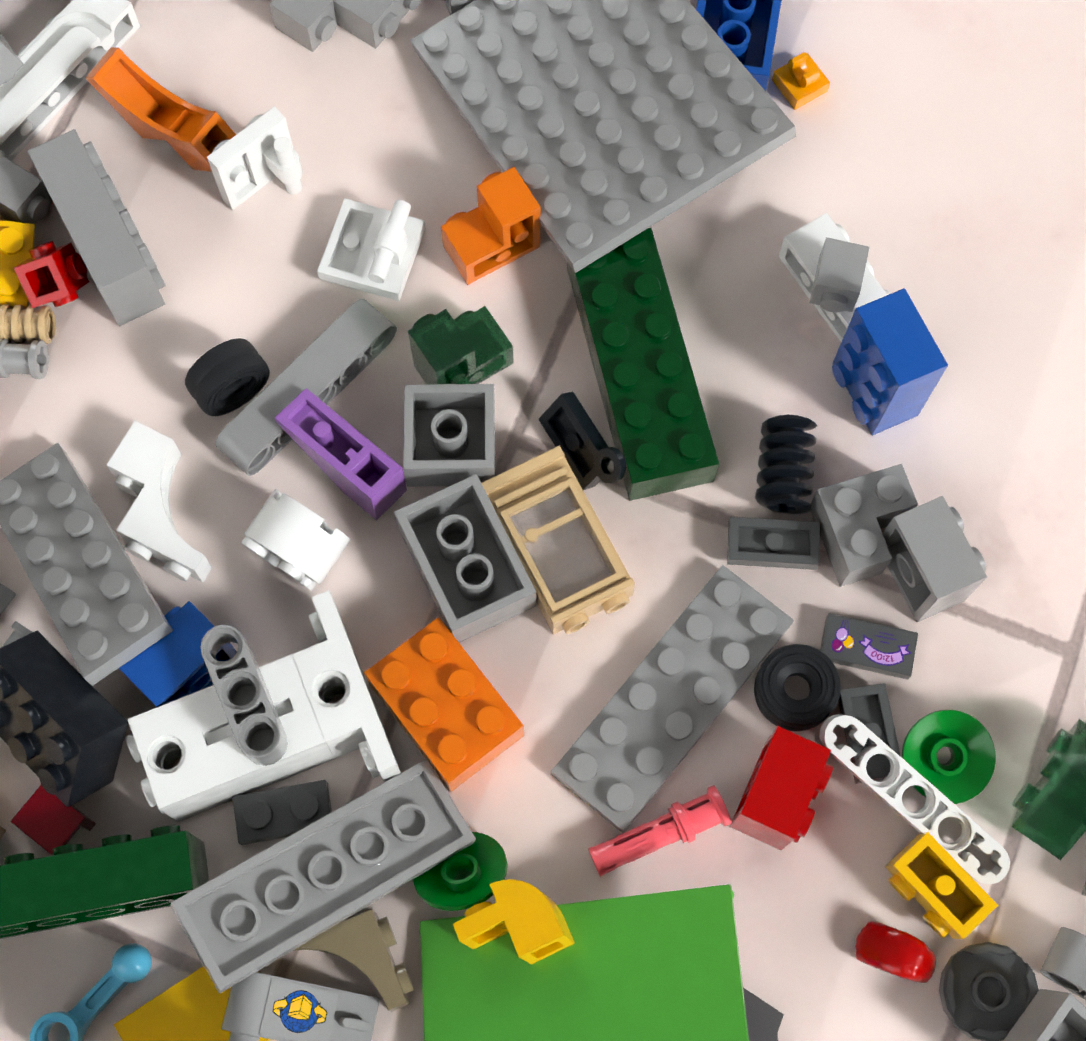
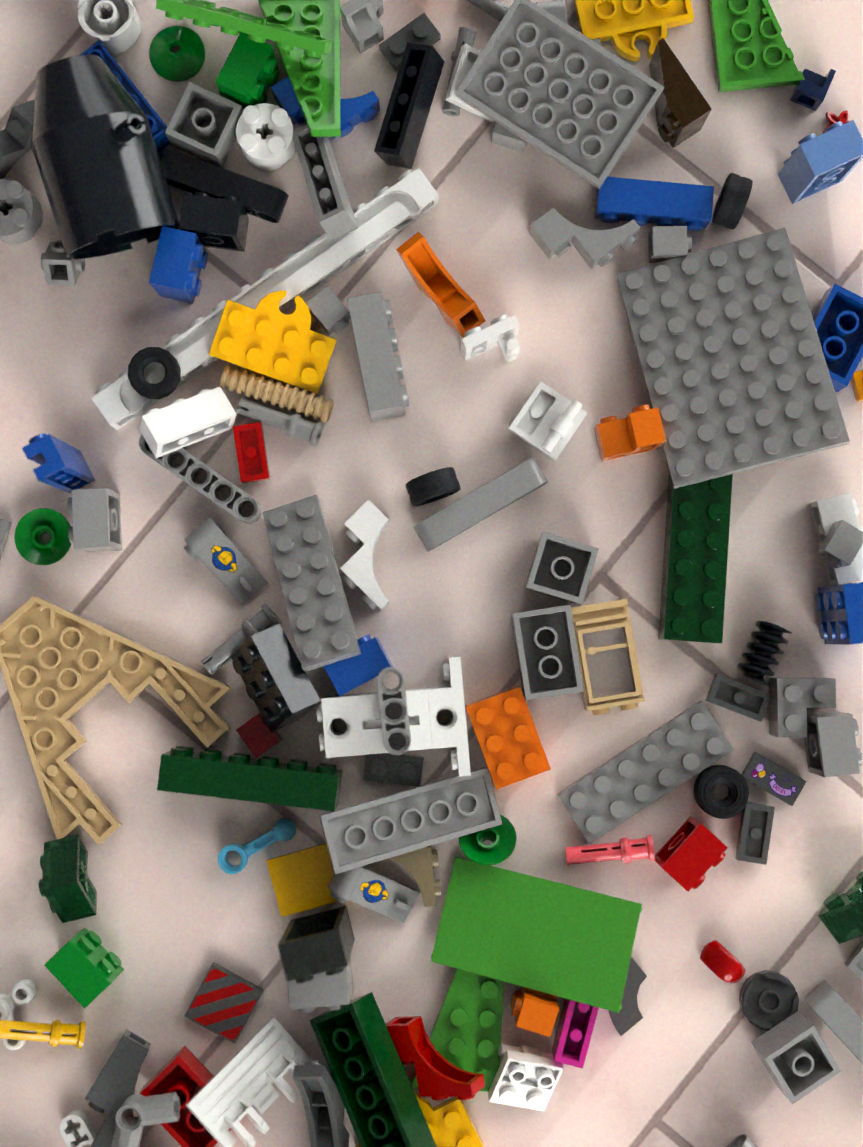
camera: 20 degrees right, 15 degrees up
(52, 274) = (340, 381): red brick -> none
(297, 537) = (446, 607): white brick -> none
(343, 454) = (490, 559): medium lavender slope -> none
(459, 349) = (583, 512): clear green brick -> none
(524, 913) = (520, 881): yellow brick -> none
(581, 442) = (641, 597): black hinge -> none
(936, 805) = (770, 894): white beam -> none
(940, 886) = (763, 937): yellow brick -> none
(970, 749) = (798, 874): green dish -> none

